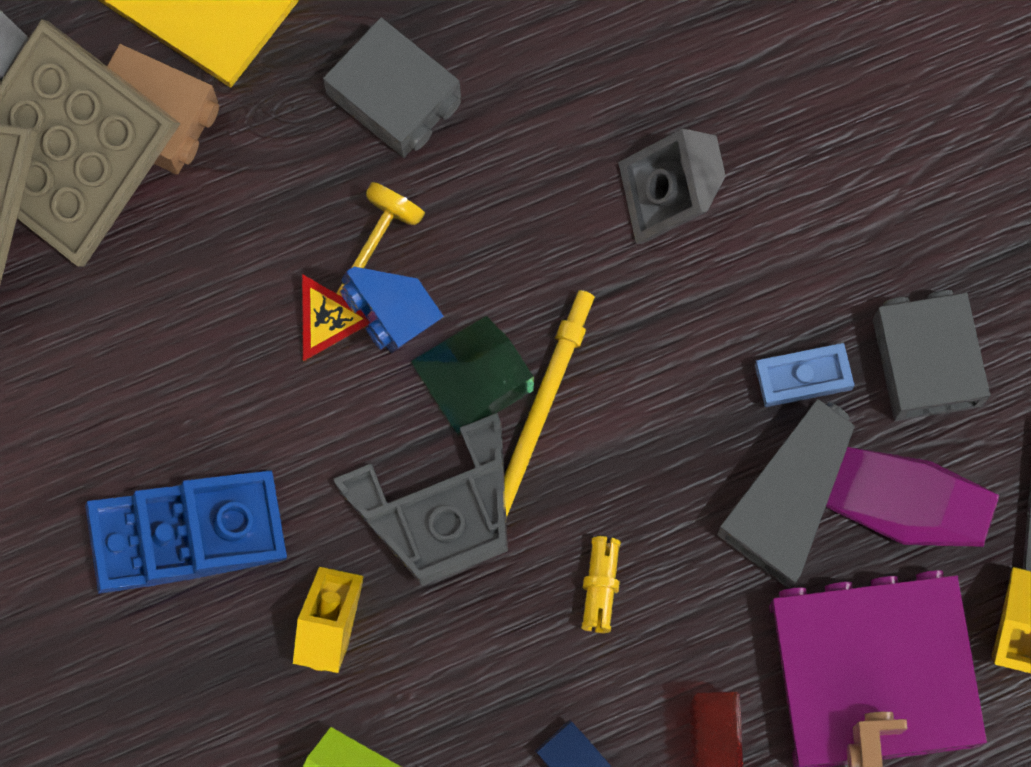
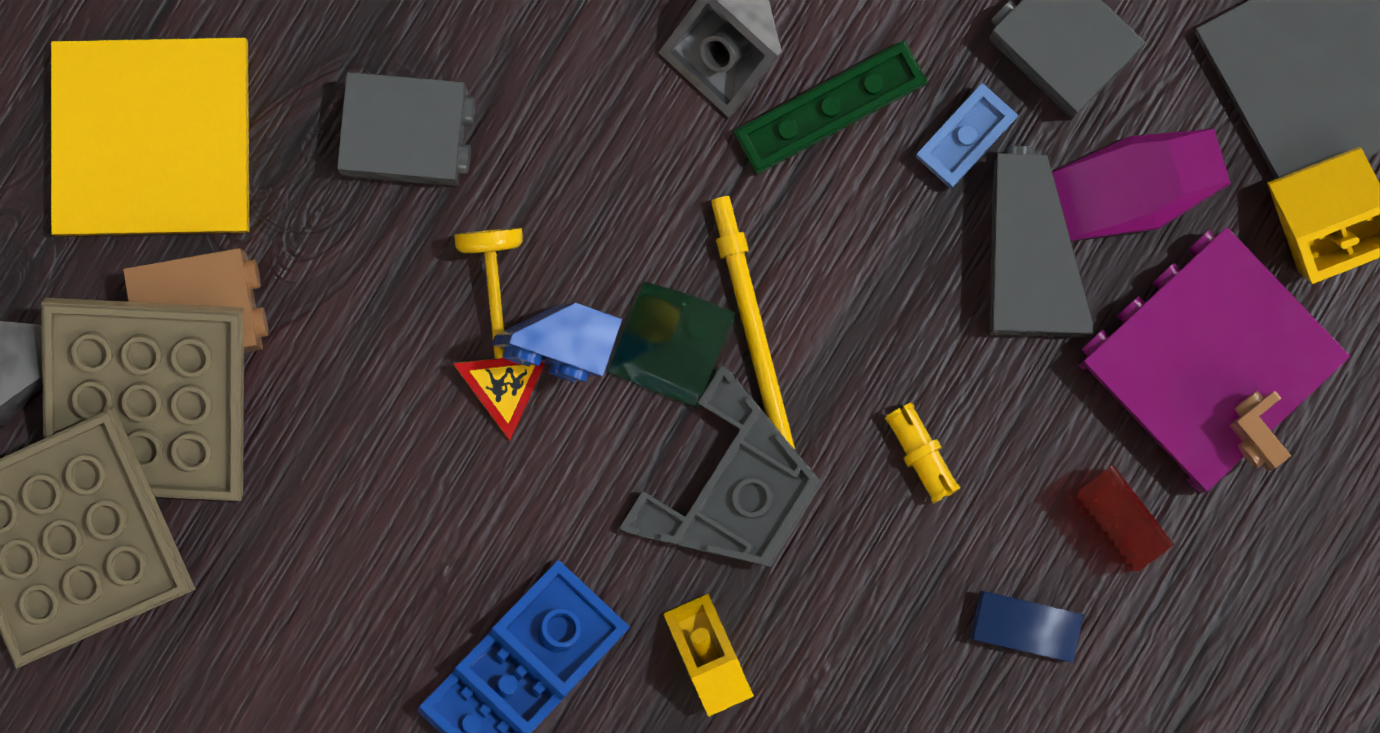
camera: 35 degrees left, 10 degrees up
(717, 286) = (830, 107): none -> dark green tile

